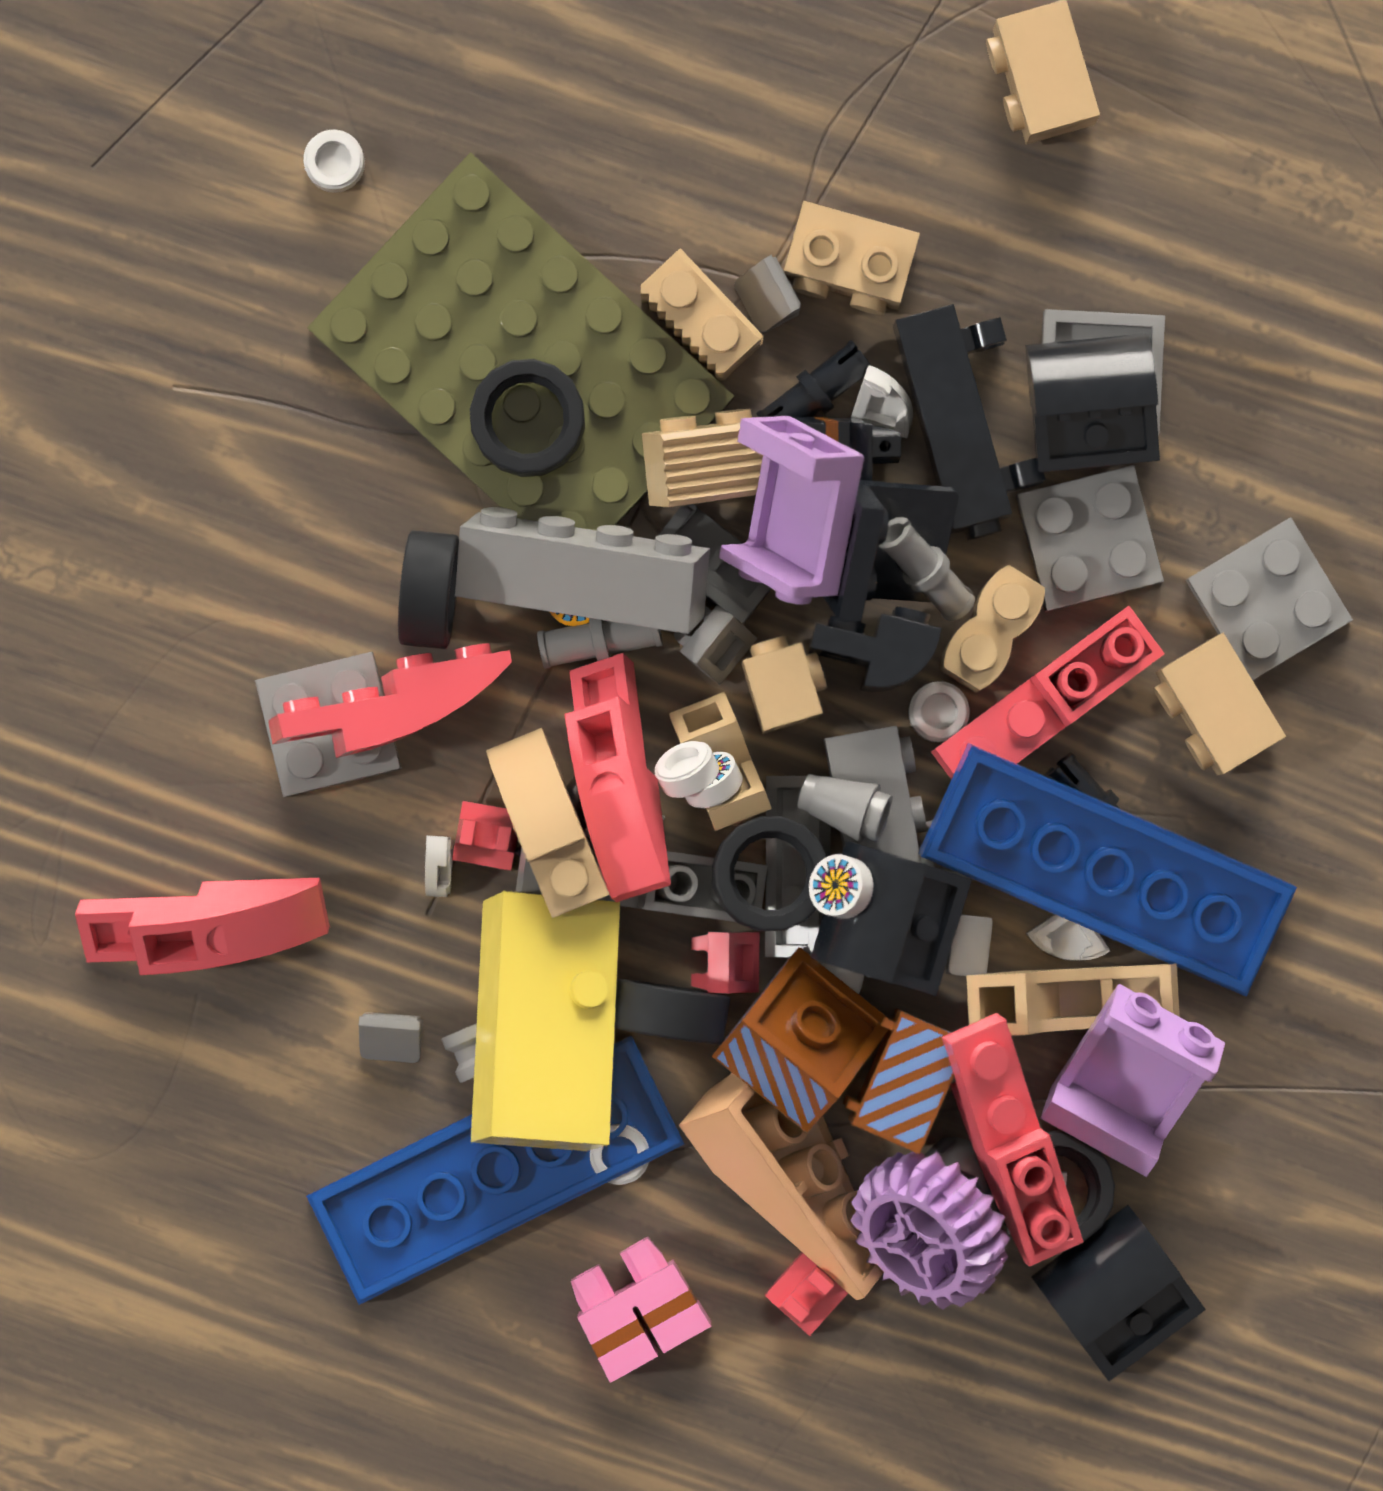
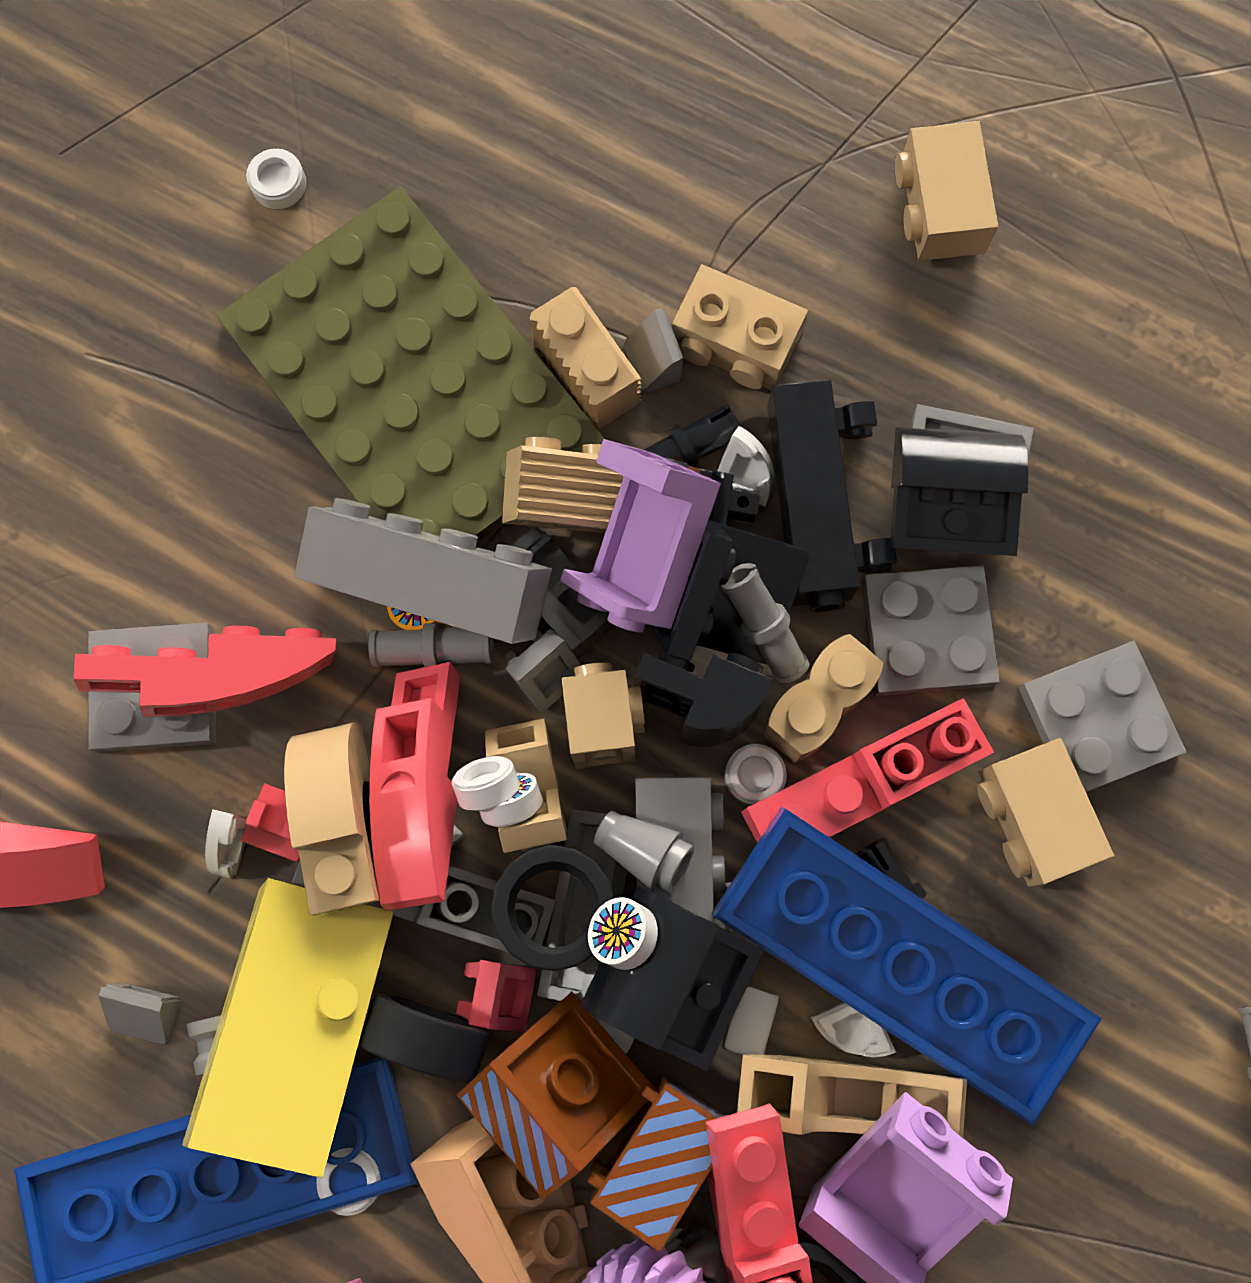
camera: 10 degrees right, 10 degrees down
(428, 590) = (263, 568): black tyre -> none
(527, 372) = (386, 378): black tyre -> none

